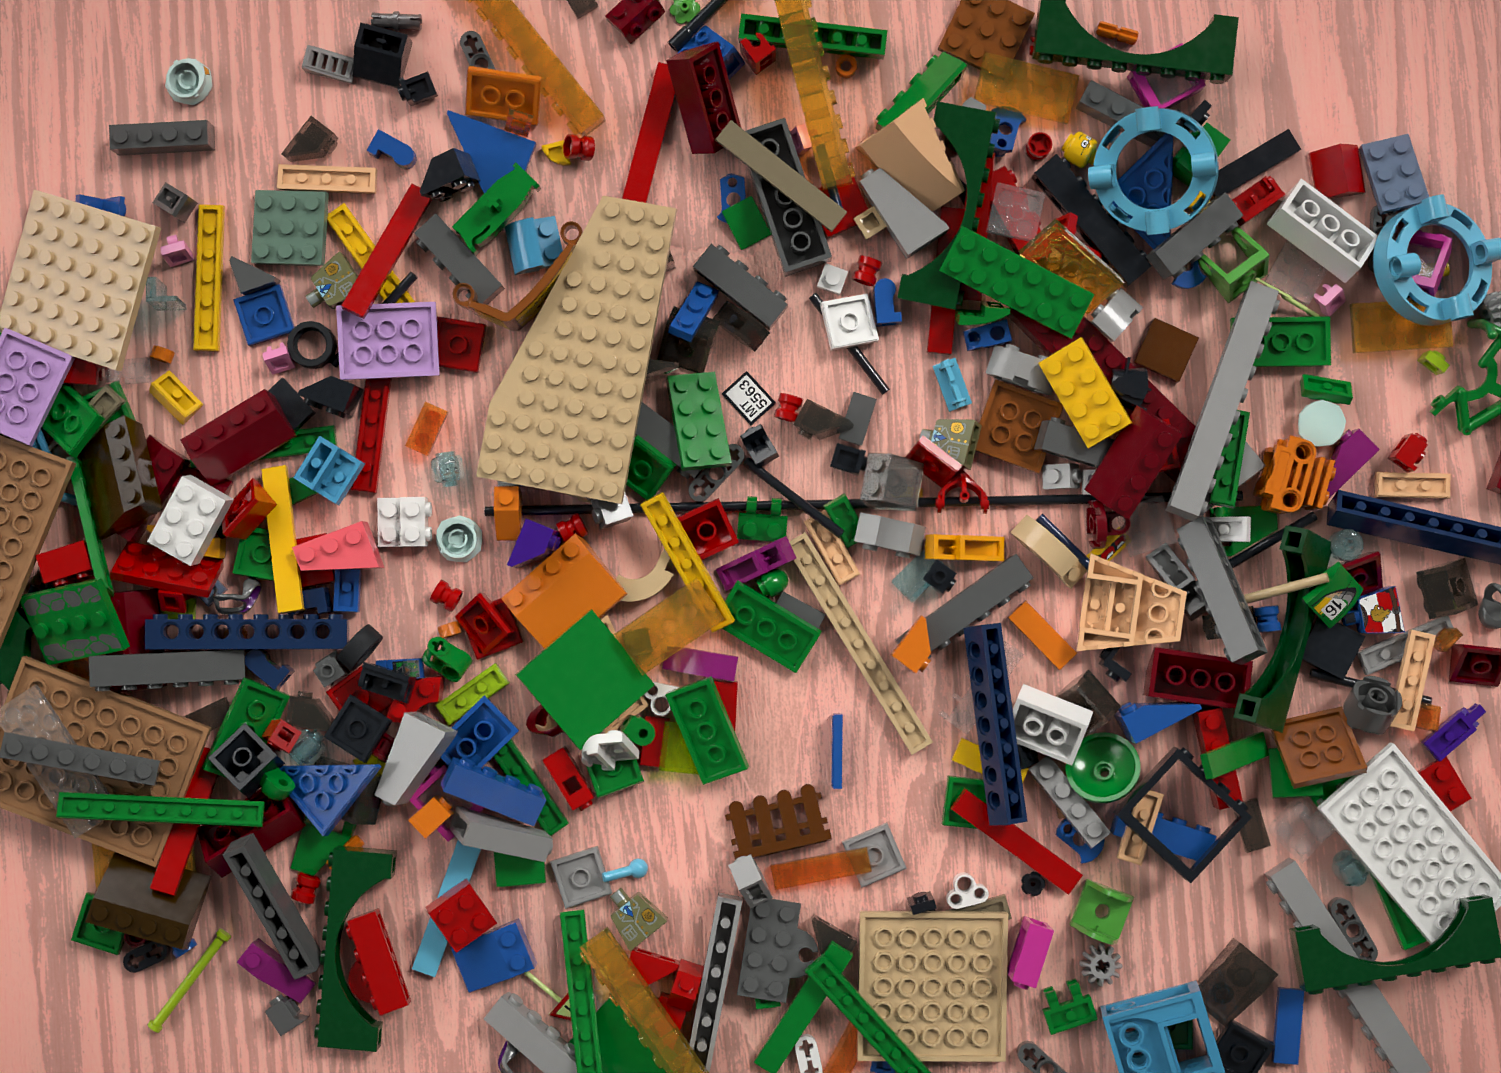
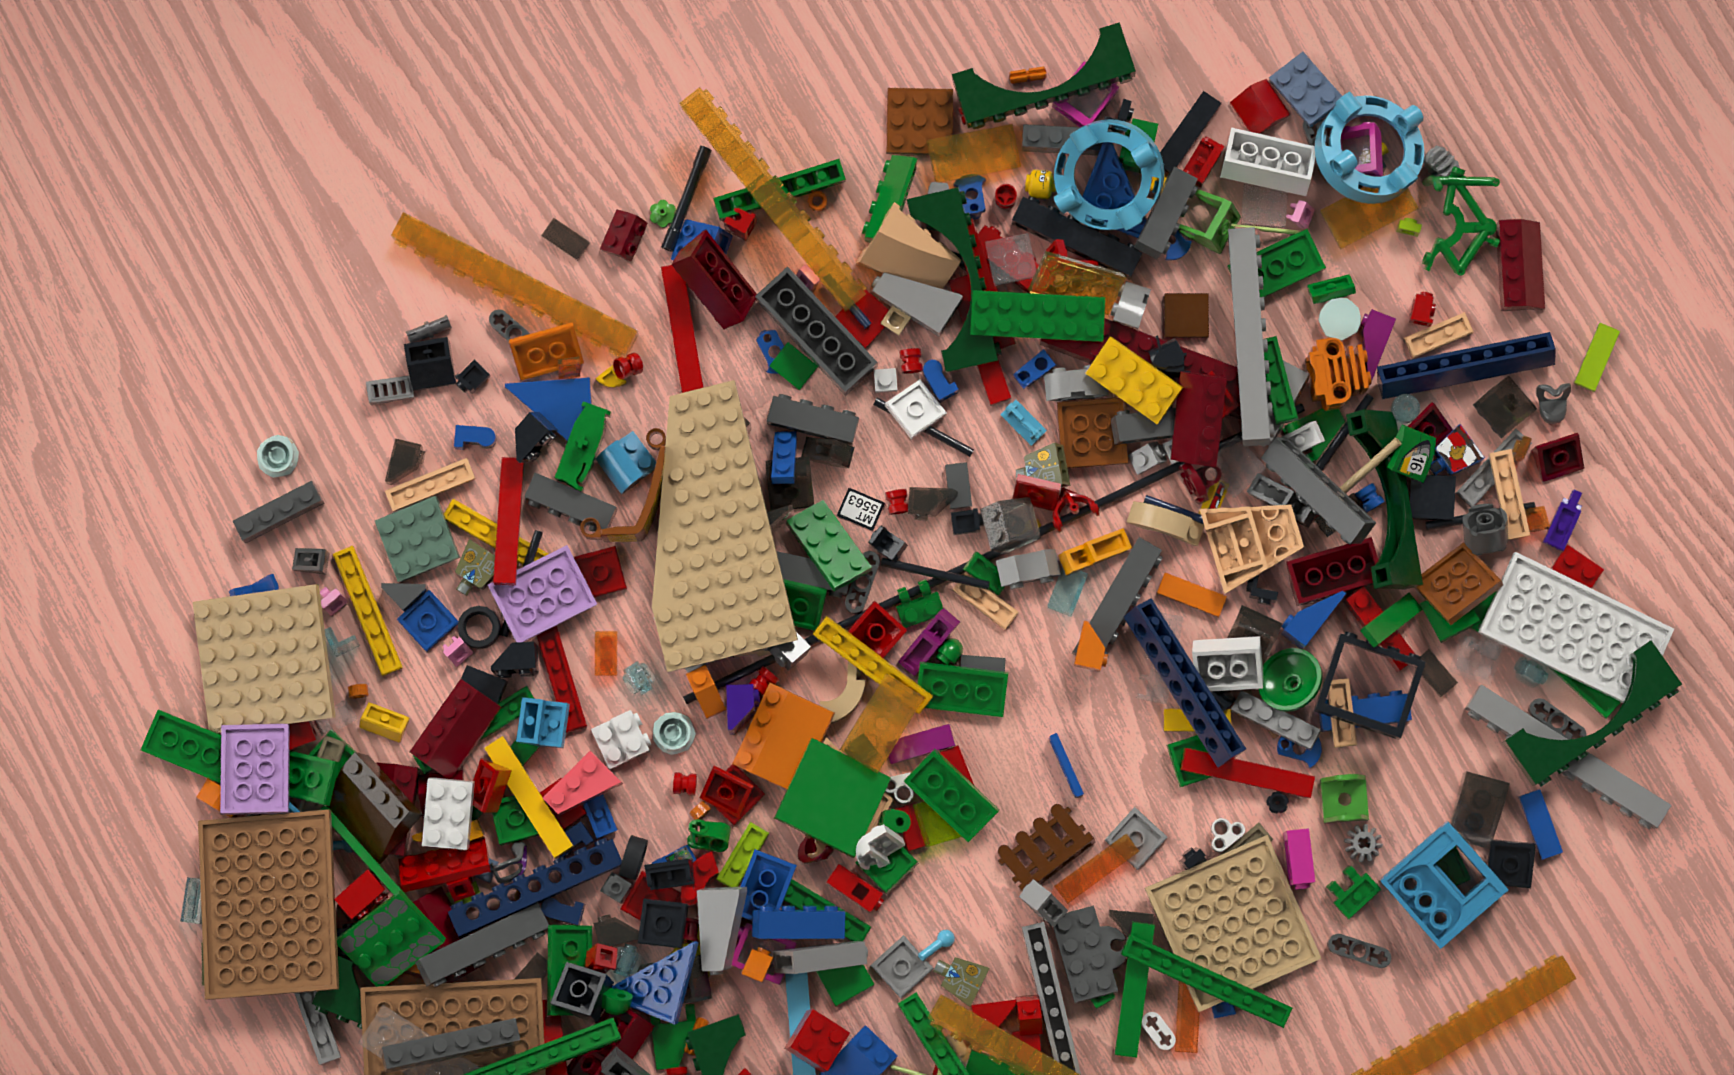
camera: 25 degrees left, 5 degrees down
(781, 176) = (806, 315): dark tan tile -> none
(859, 644) = (1044, 670): tan plate -> none
(940, 577) = (1085, 584): black bracket -> none
(988, 312) = (1026, 350): green slope -> none

